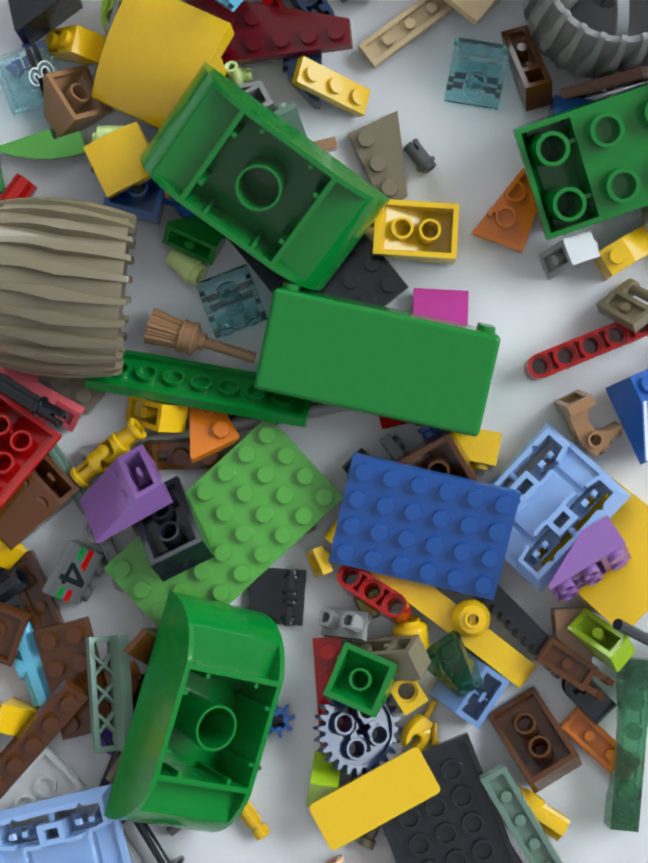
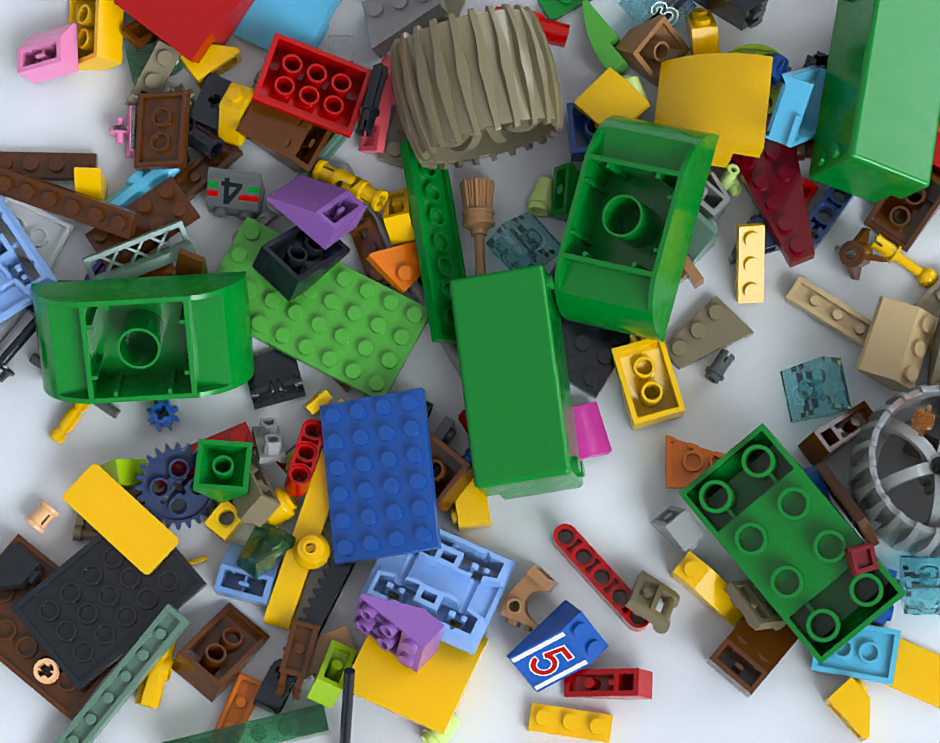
camera: 75 degrees right, 10 degrees down
(420, 727) = (198, 544): yellow hand -> none

